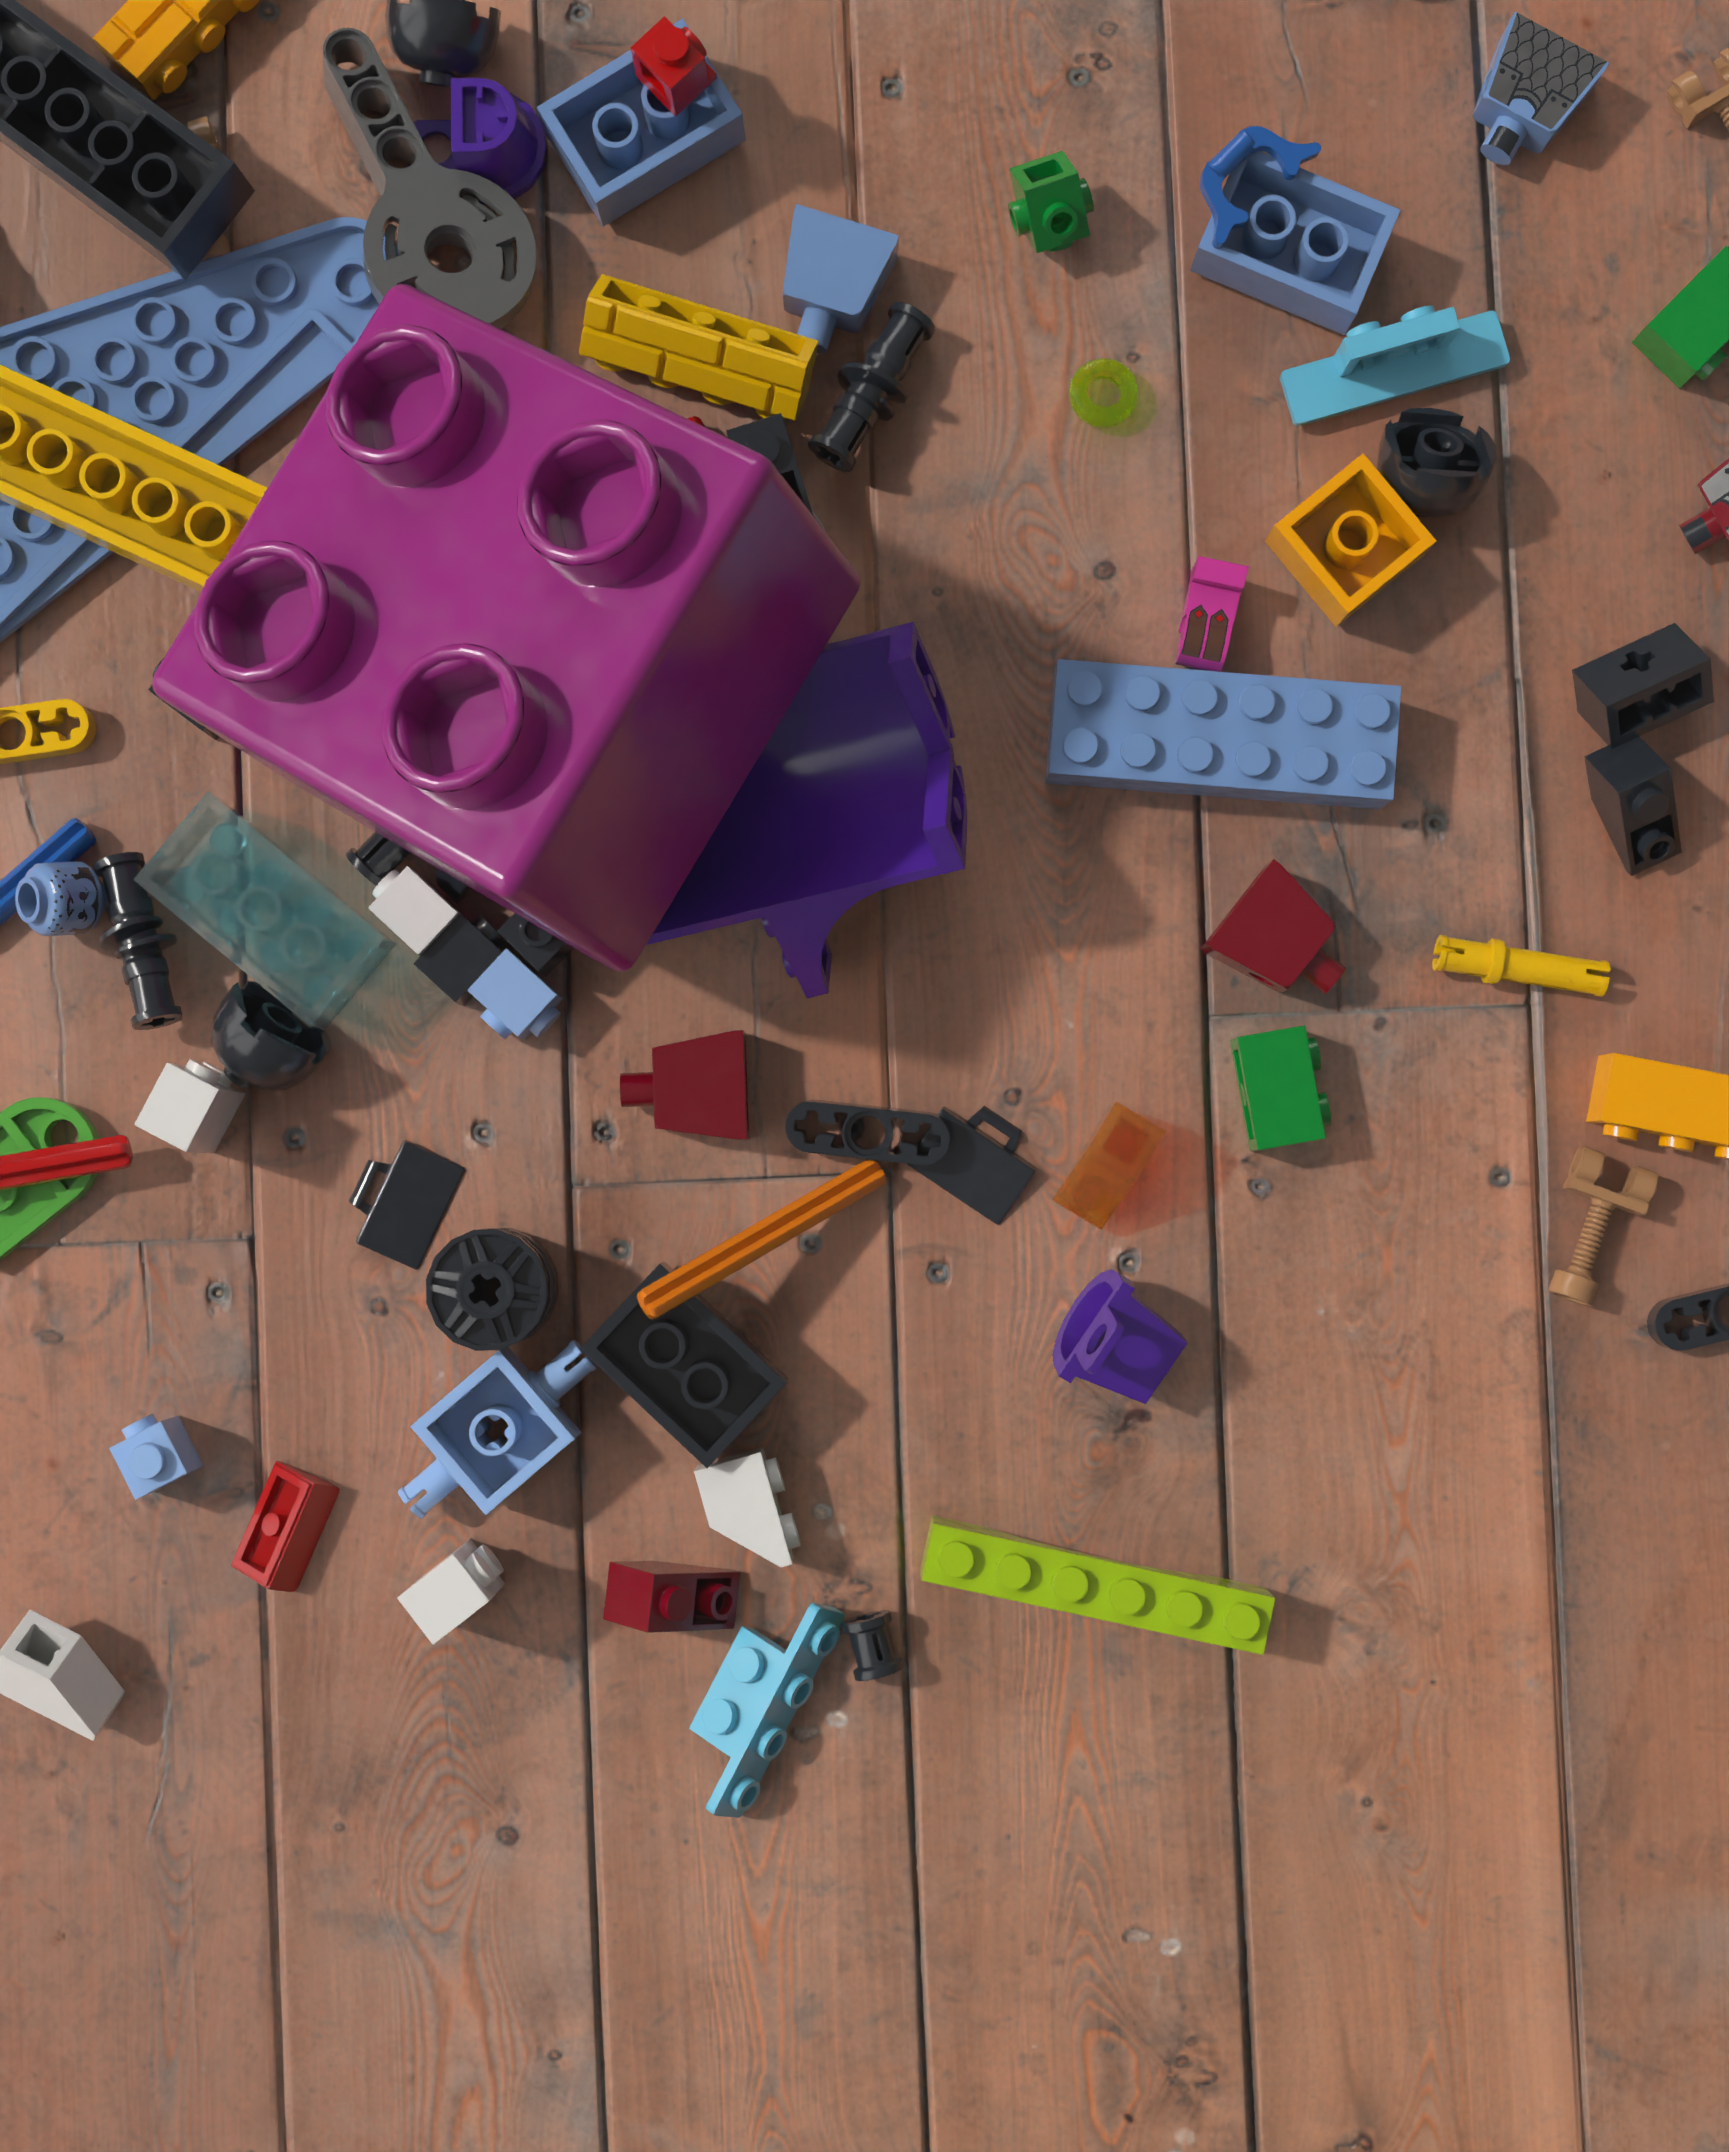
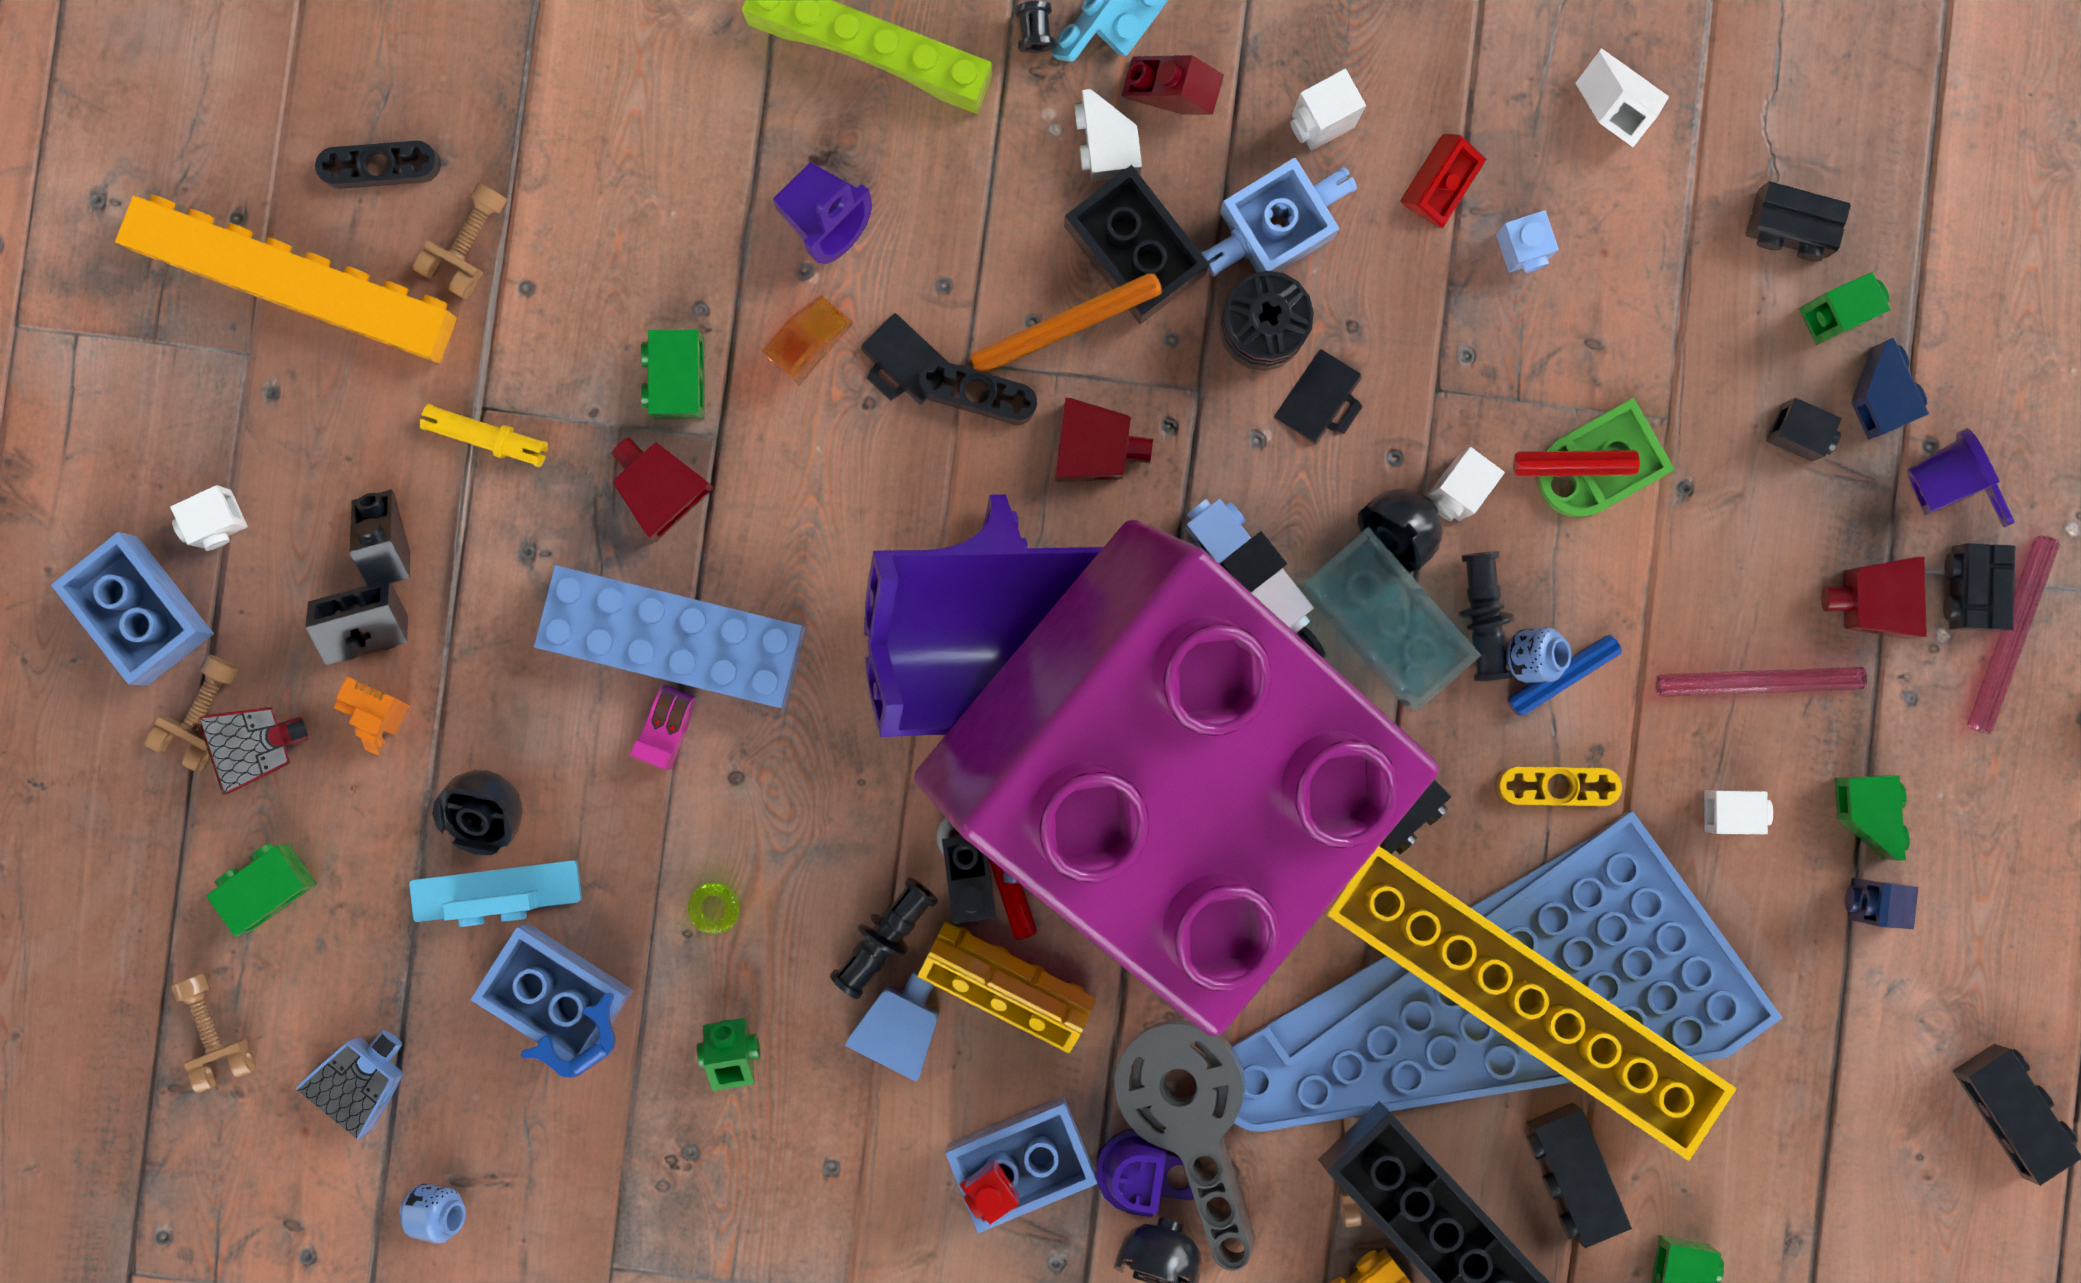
camera: 170 degrees left, 0 degrees up
(1349, 540) = (551, 763): light orange brick -> none
(1602, 571) = (370, 712): none -> orange piece

